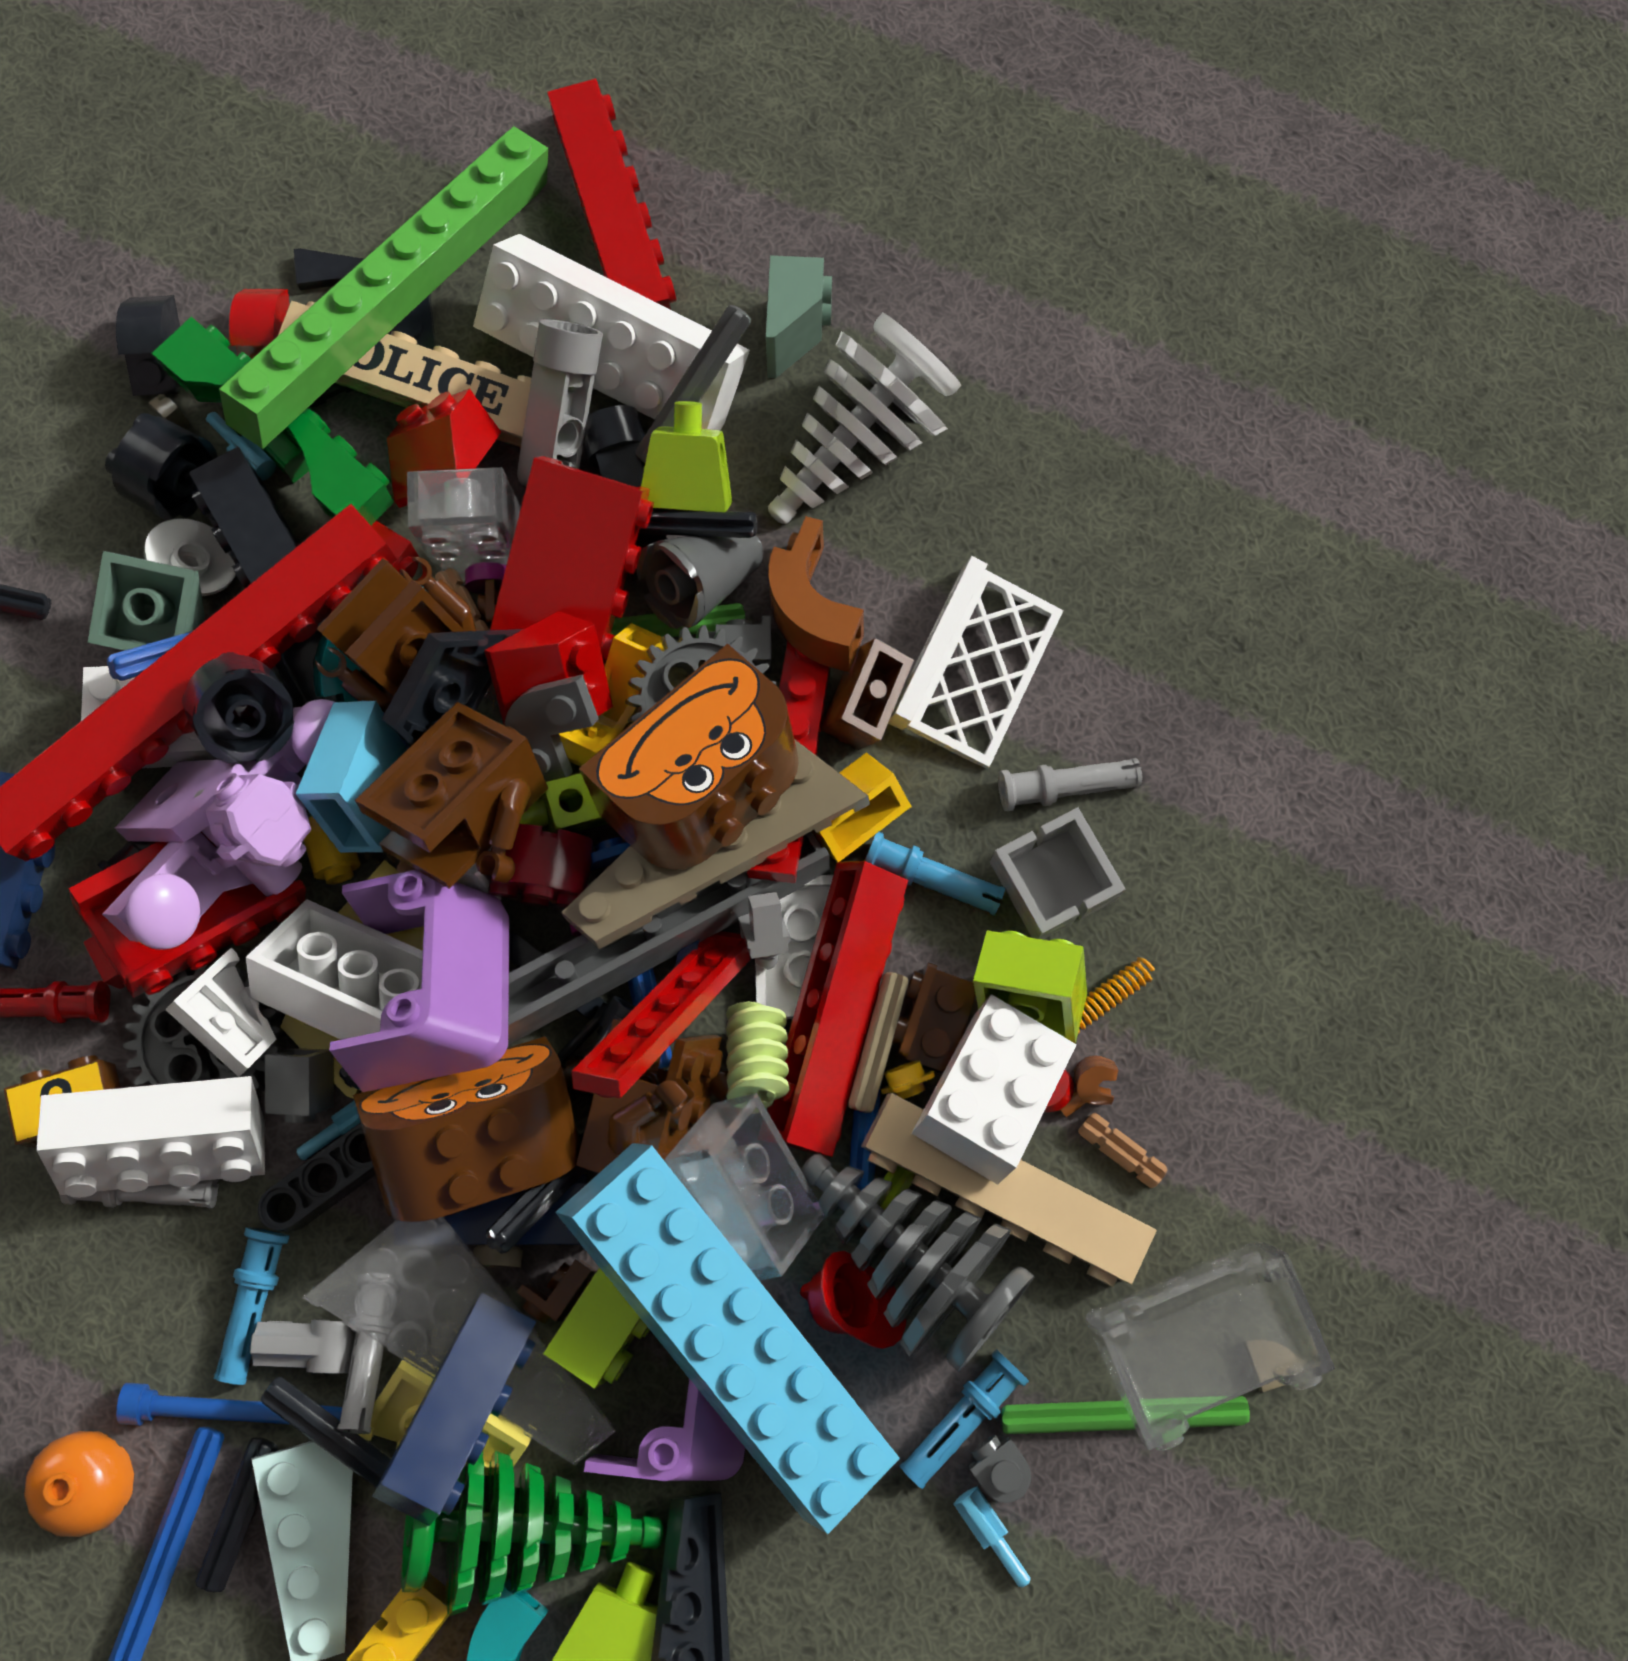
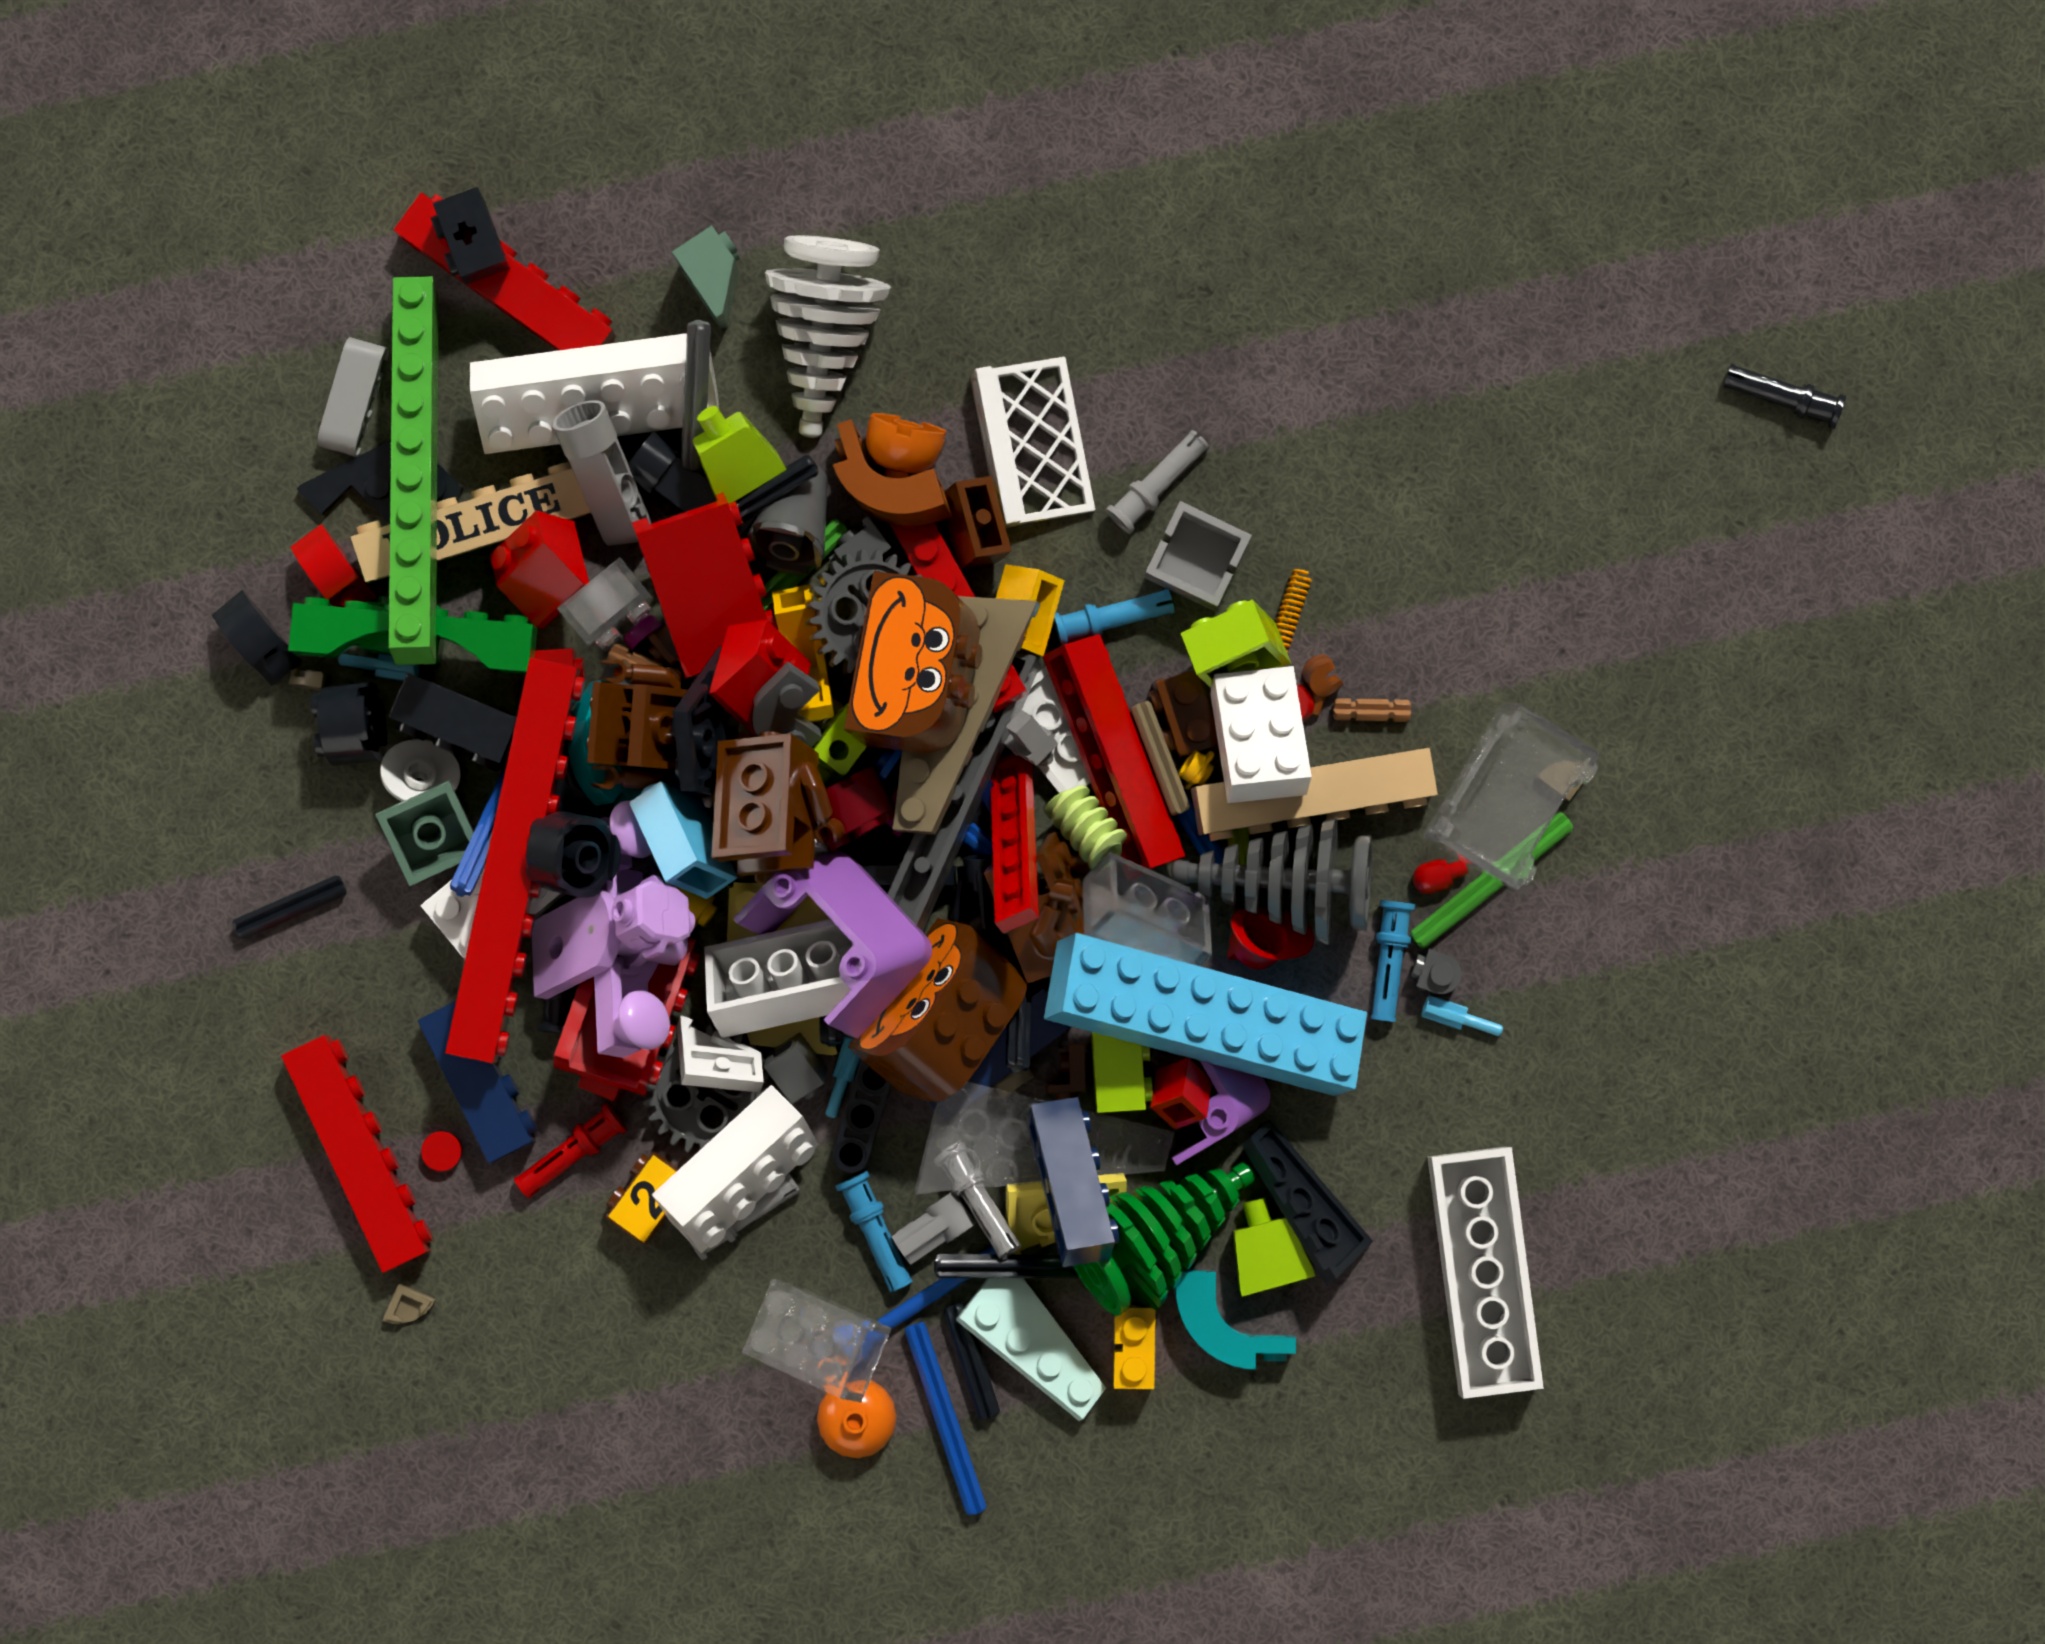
camera: 35 degrees left, 10 degrees up
(93, 1374) = (816, 1340): none -> clear brick
(394, 203) = (351, 395): none -> light grey beam
(605, 132) = (464, 213): none -> black brick
(645, 1399) = (1181, 1093): none -> red brick
(852, 577) = (903, 444): none -> orange cylinder
(1073, 1367) = (1437, 875): none -> red cylinder

